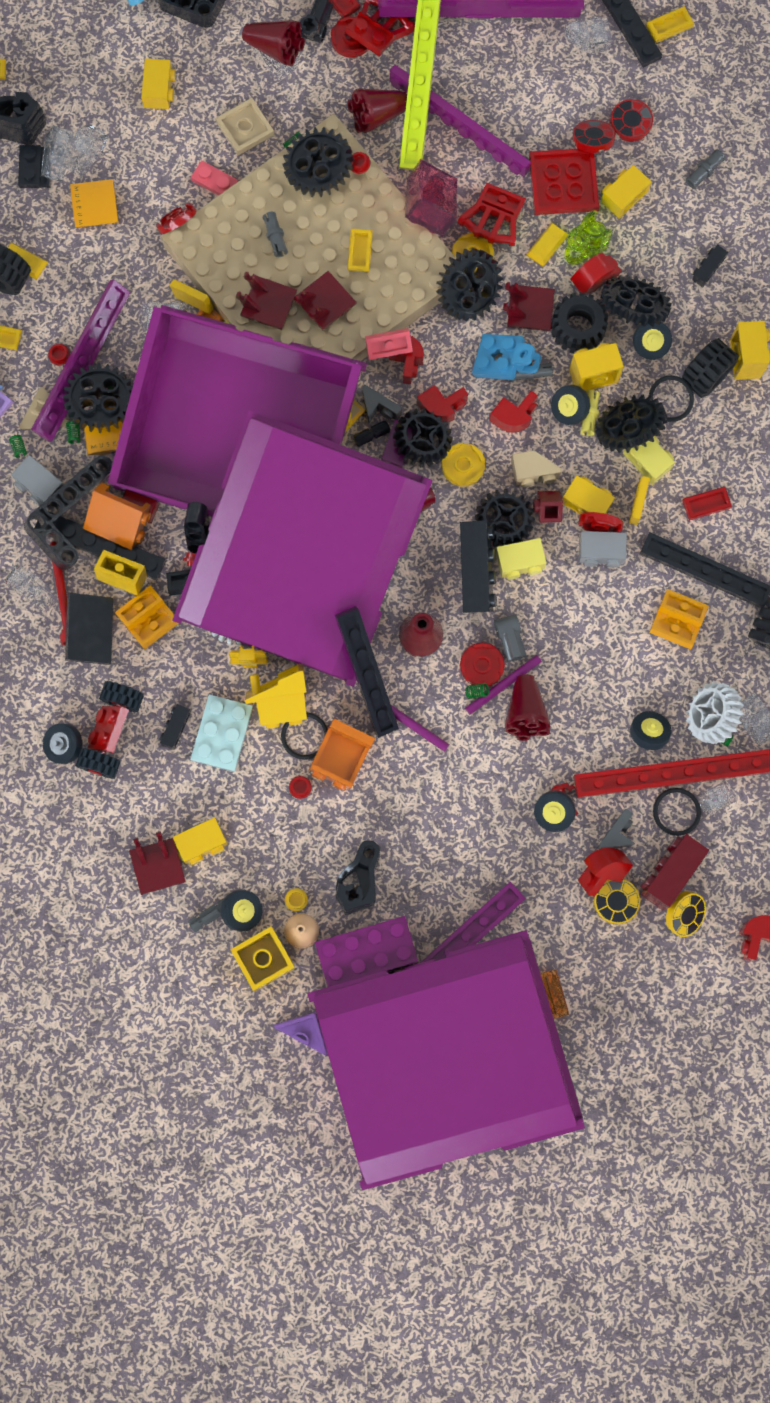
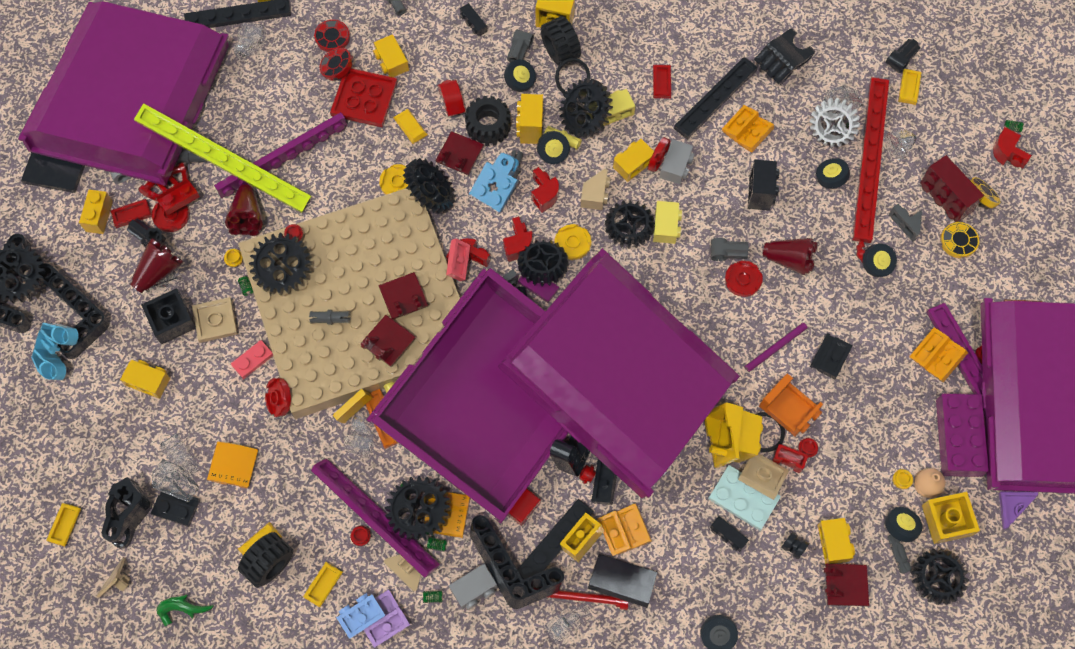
camera: 70 degrees left, 10 degrees down
(108, 729) = (720, 588): plate -> none
(116, 518) = (532, 526): orange panel -> none
(182, 800) = (795, 545): none -> black wheel
(203, 955) = (943, 583): none -> black gear
(230, 78) = (168, 316): none -> black brick
(248, 657) = (689, 452): yellow piece -> none
(249, 744) = (763, 475): none -> tan plate
(280, 770) = (790, 458): none -> red piece
(320, 115) = (233, 258): none -> yellow plate
(360, 250) = (369, 256): yellow tile -> none
(365, 871) = (919, 419): black piece -> none
(366, 671) = (735, 357): black plate -> none
(417, 785) = (831, 356): none -> black plate
(419, 640) = (706, 314): dark red cone -> none
(431, 198) = (345, 190): clear pink brick -> none
(457, 905) = (938, 354): none -> light orange slope
(477, 566) = (667, 253): black brick -> none
(477, 691) = (765, 294): green piece -> none
(500, 204) = (366, 146): red plate -> none
(503, 684) = (764, 268): magenta bar -> none
(548, 506) = (632, 187): dark red brick -> none
(590, 240) = (421, 93): clear neon green piece -> none
(602, 650) = (763, 185): none -> black brick
(604, 865) = (935, 239): red brick -> none
(620, 295) = (486, 74): black gear -> none
(639, 500) = (646, 124): yellow tile -> none
(693, 798) = (899, 192): black tyre -> none
(694, 328) = (520, 43): none -> dark grey piece

